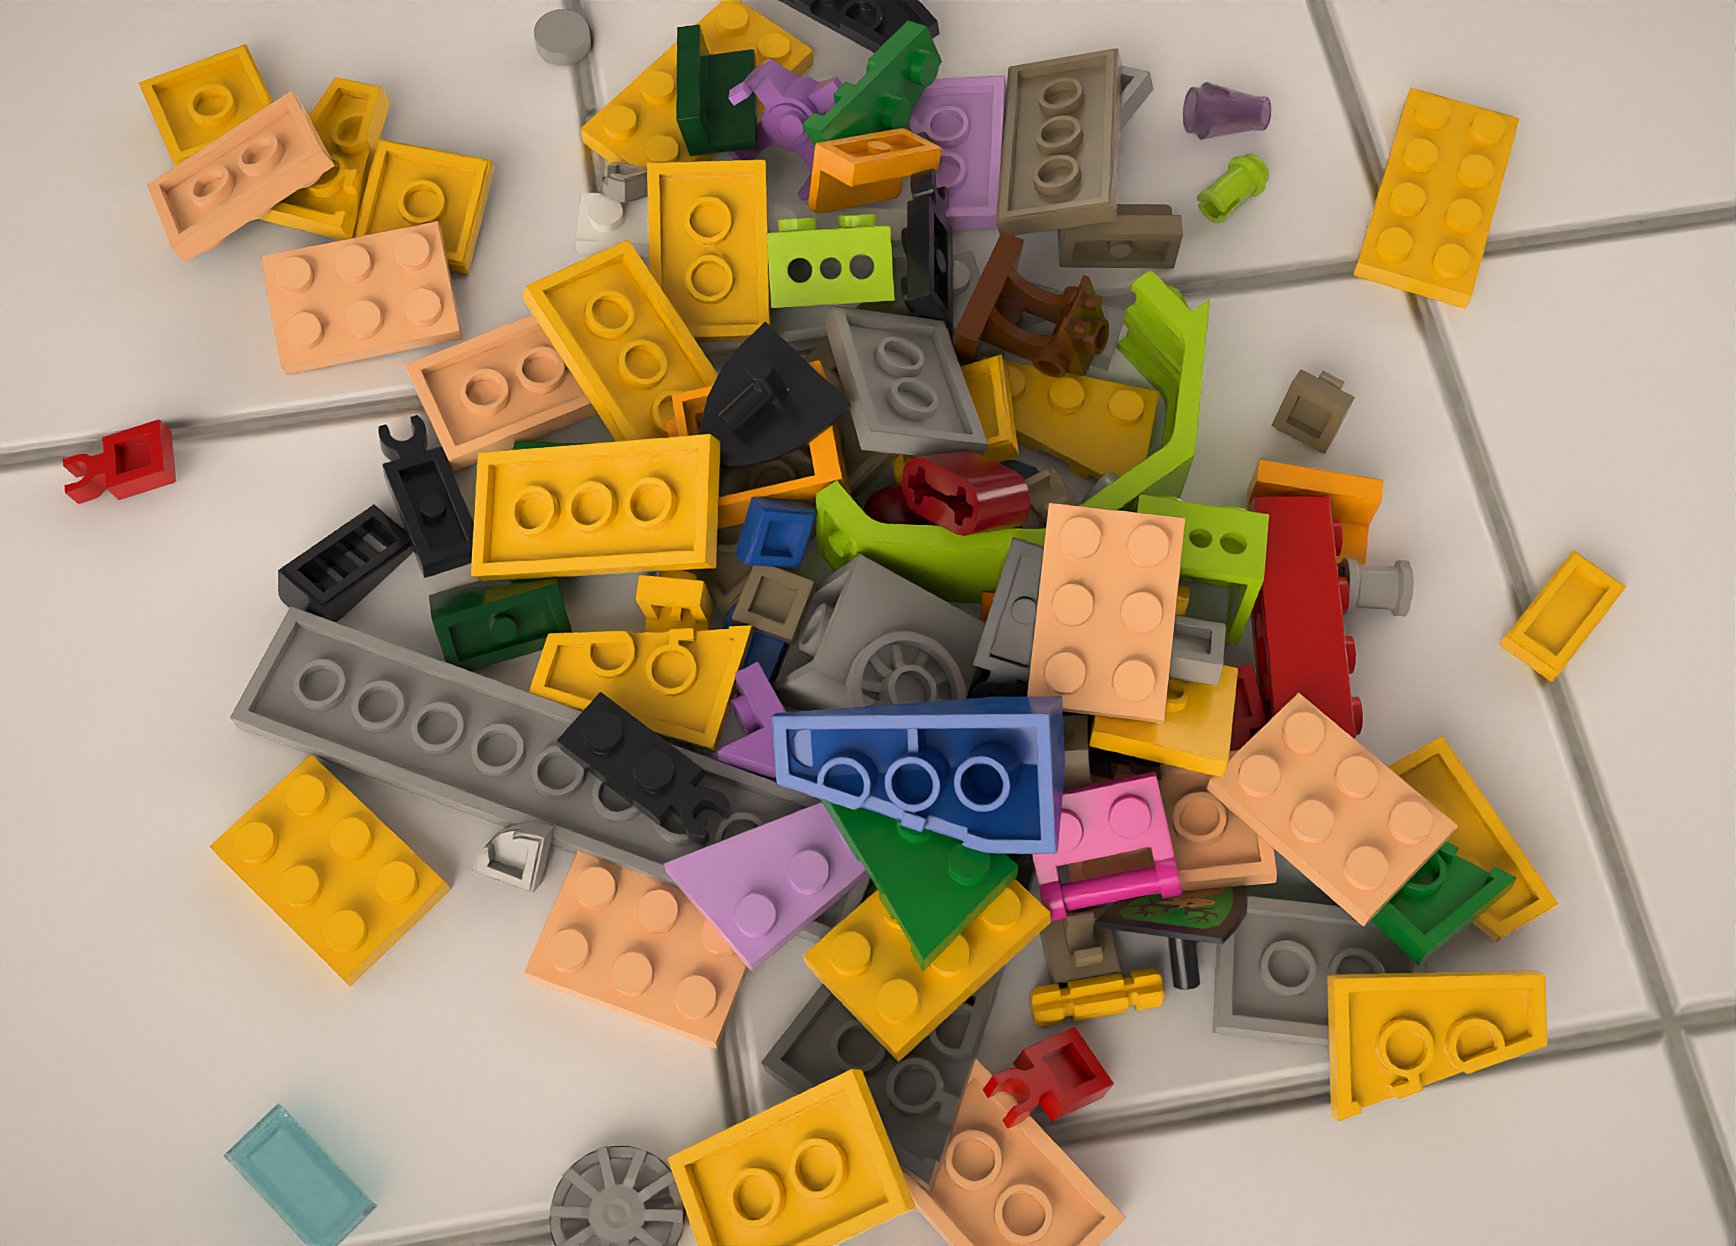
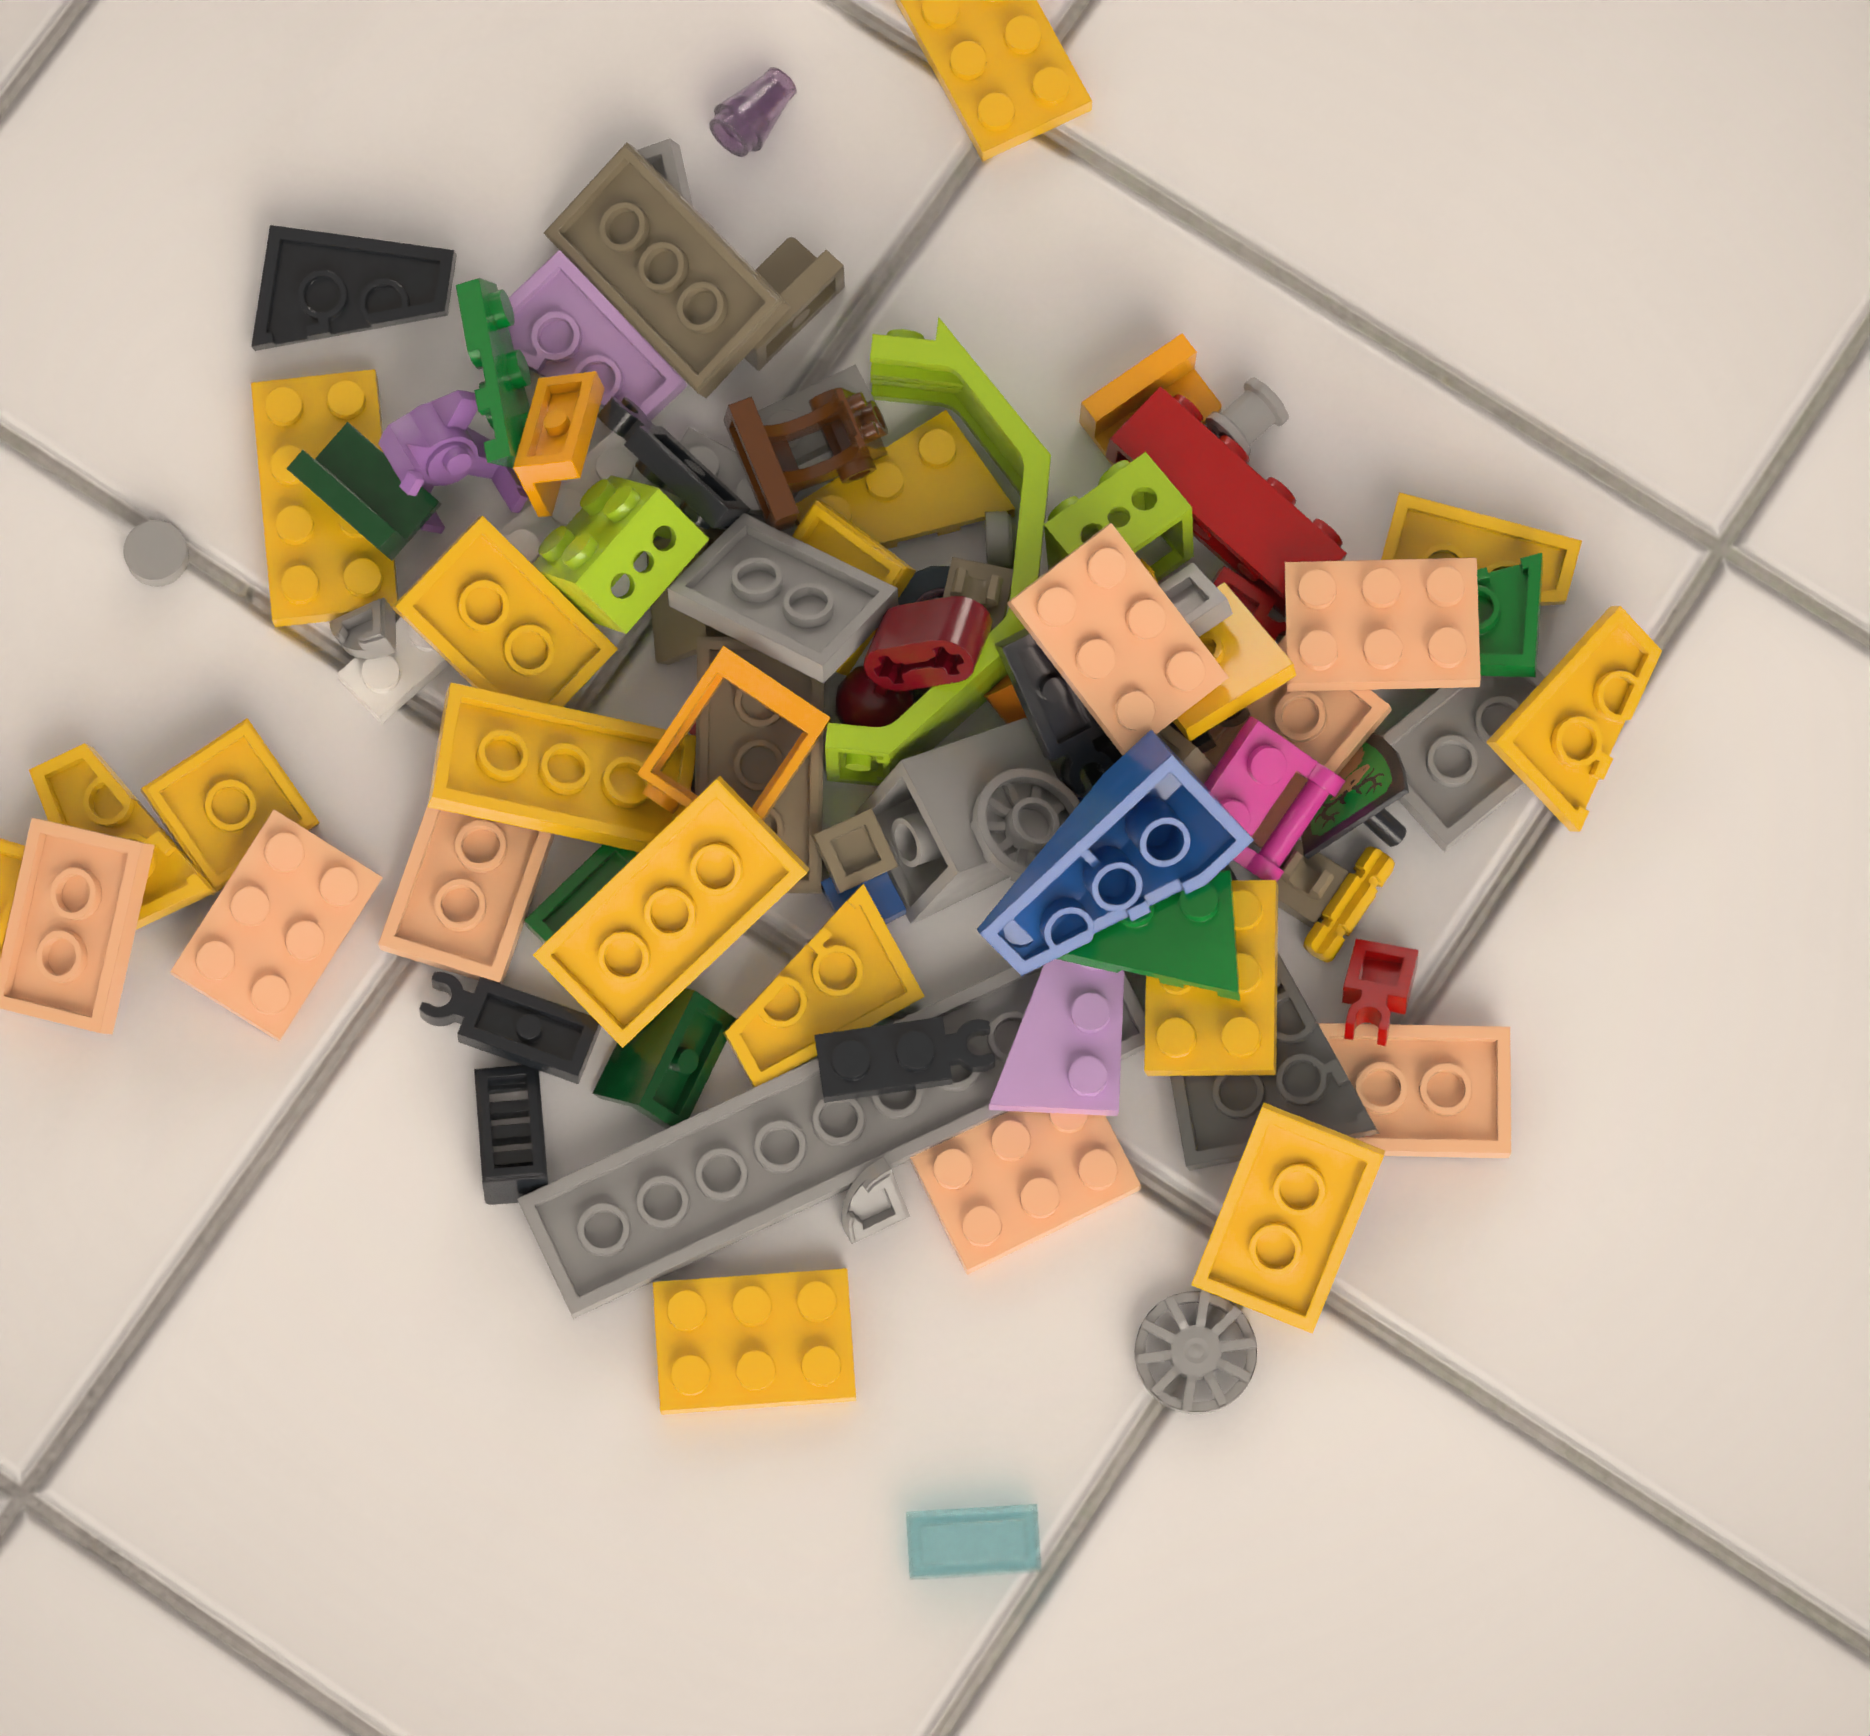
camera: 45 degrees left, 10 degrees up
(129, 465) = (264, 1219): red plate -> none
(674, 601) = (791, 924): yellow bracket -> none
(754, 711) = (928, 936): medium lavender slope -> none
(768, 402) = (717, 713): black shield -> none
(775, 532) = (813, 800): blue tile -> none
(1244, 178) = (826, 175): lime pin -> none
(1313, 409) = (1072, 314): dark tan tile -> none
(1562, 616) = (1391, 309): yellow tile -> none

